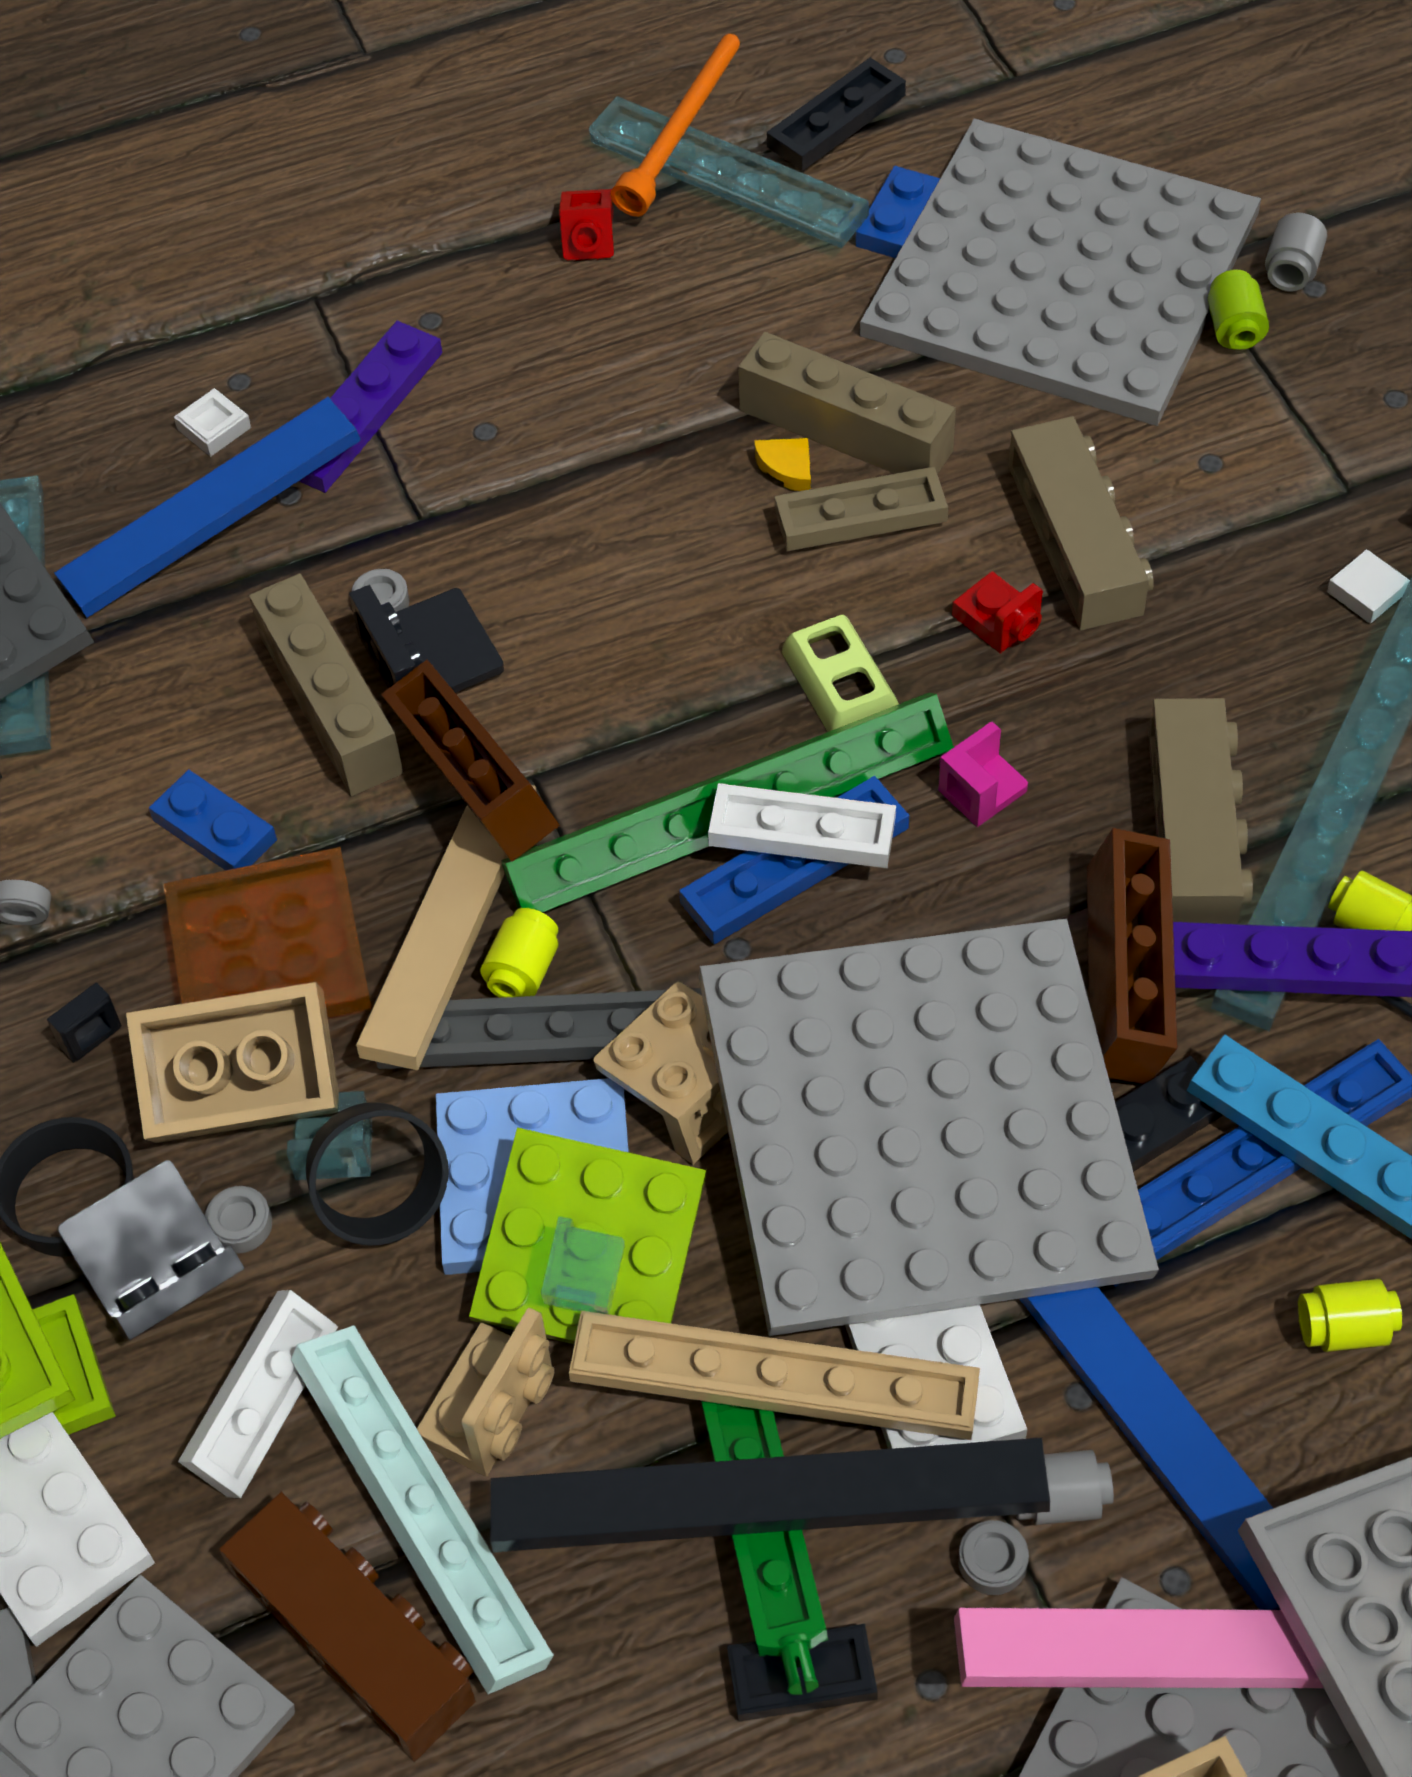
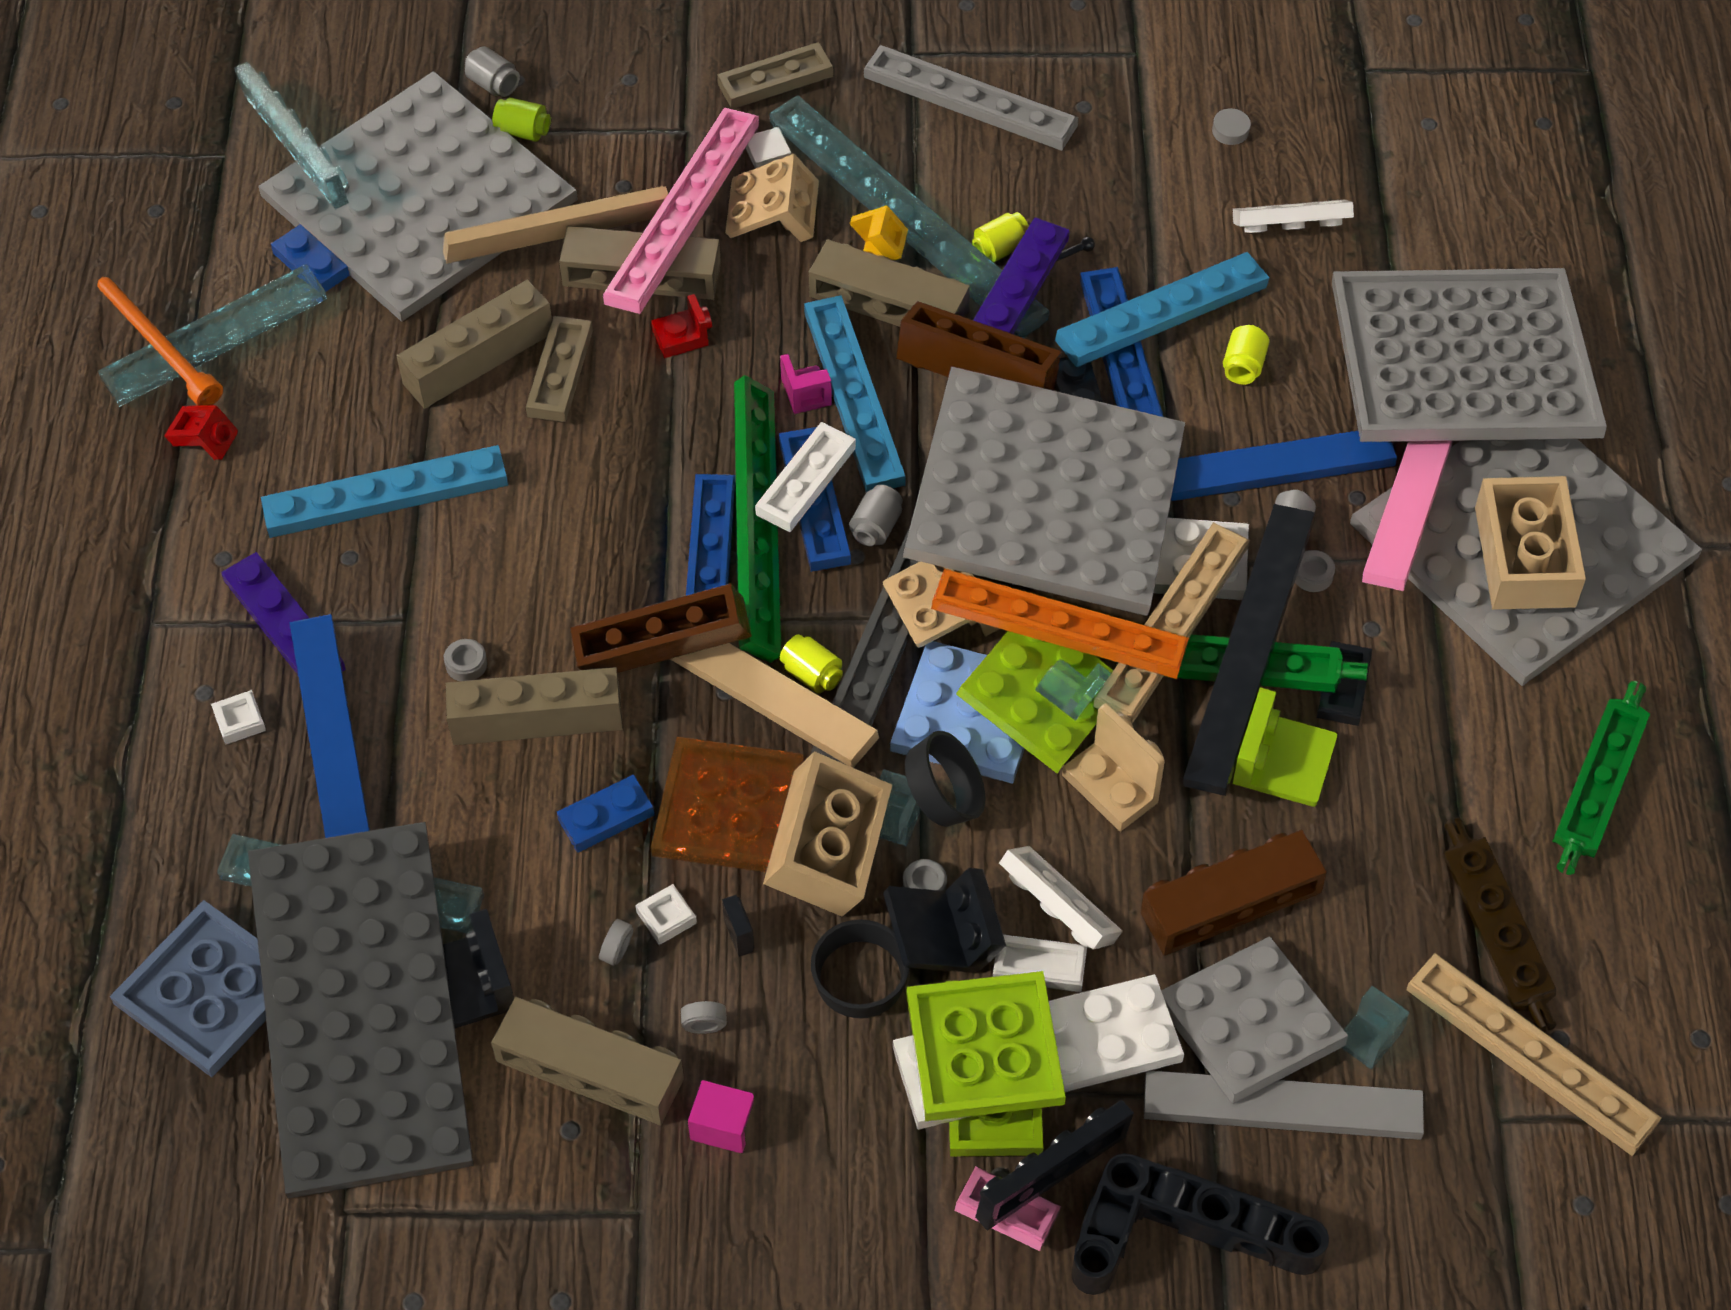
camera: 70 degrees left, 0 degrees up
(89, 944) = (666, 914): none -> white tile
(156, 1406) = (1060, 961): none -> white tile
(422, 1510) = (1170, 832): light aqua plate -> none
(434, 629) = (531, 640): black bracket -> none
(594, 423) = (384, 491): none -> dark azure plate
(620, 1615) = (1283, 754): none -> lime bracket
(648, 777) = (711, 532): none -> blue tile
(677, 1221) = (1060, 623): none -> orange tile
(785, 461) = (491, 395): yellow tile -> none
(794, 932) = (876, 515): none -> light grey brick
(818, 674) = (681, 438): yellowish green piece -> none
(836, 114) = (199, 257): black plate -> none
(995, 838) = (854, 393): none -> dark azure plate
(1050, 104) = (296, 140): none -> clear light blue plate
(1068, 398) = (551, 224): none -> tan tile
(1176, 520) = (681, 211): none -> bright pink tile
(1278, 762) = (881, 231): none -> yellow panel
(1279, 627) = (773, 193): none -> tan bracket

